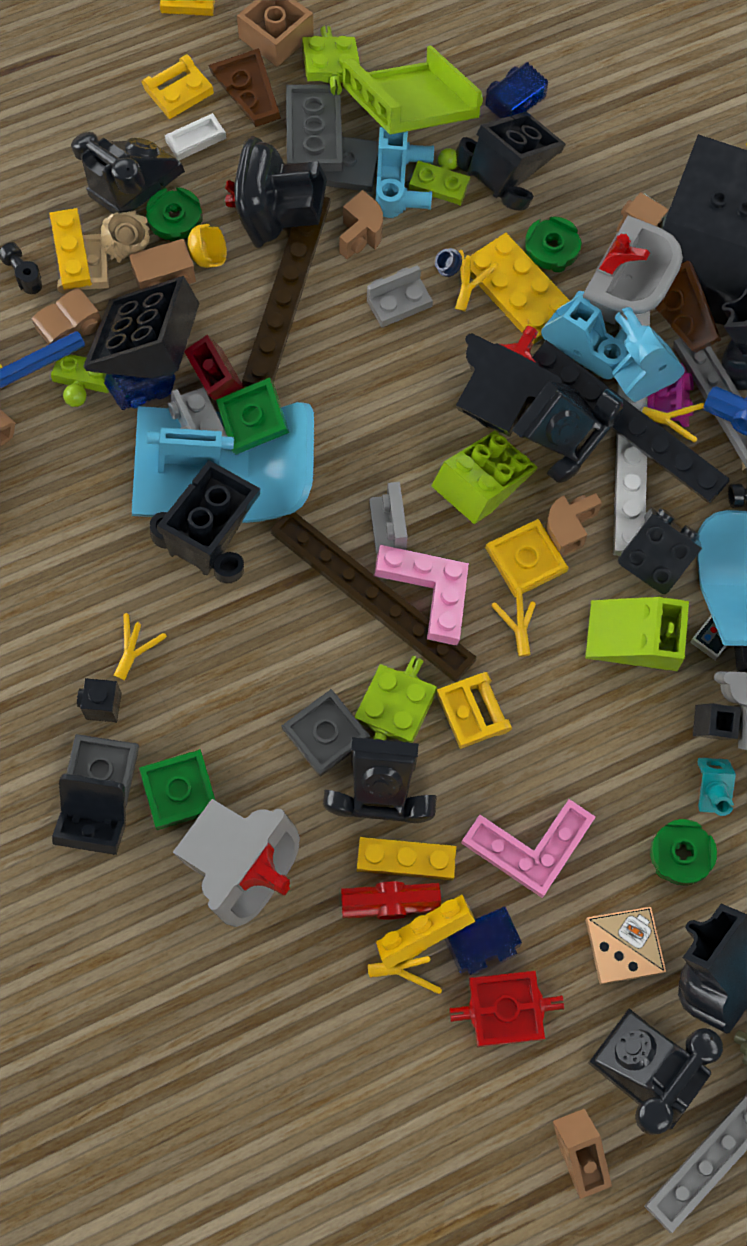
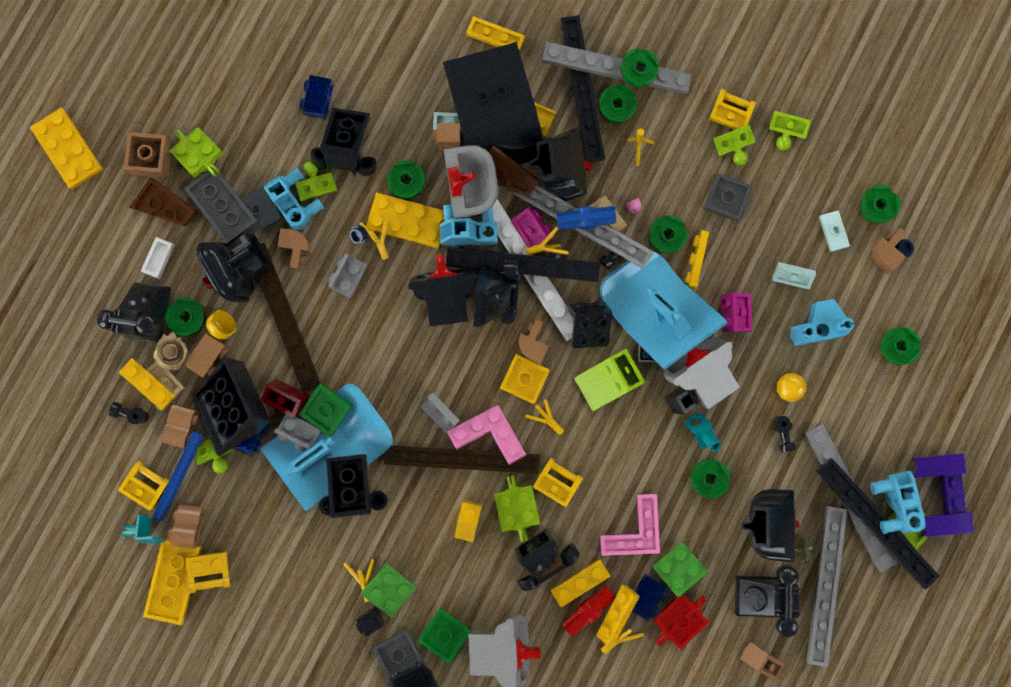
camera: 35 degrees left, 15 degrees up
(154, 681) = (388, 590): none -> bright green plate
(183, 92) = (128, 234): yellow plate -> none
(323, 664) = (468, 520): none -> yellow slope
(324, 732) = (494, 550): dark grey plate -> none
(414, 94) = (263, 147): lime panel -> none
(482, 476) = (470, 350): lime slope -> none
(555, 939) = (680, 569): none -> bright green plate
(625, 945) = (714, 545): tile -> none
(650, 360) = (510, 226): medium azure piece -> none

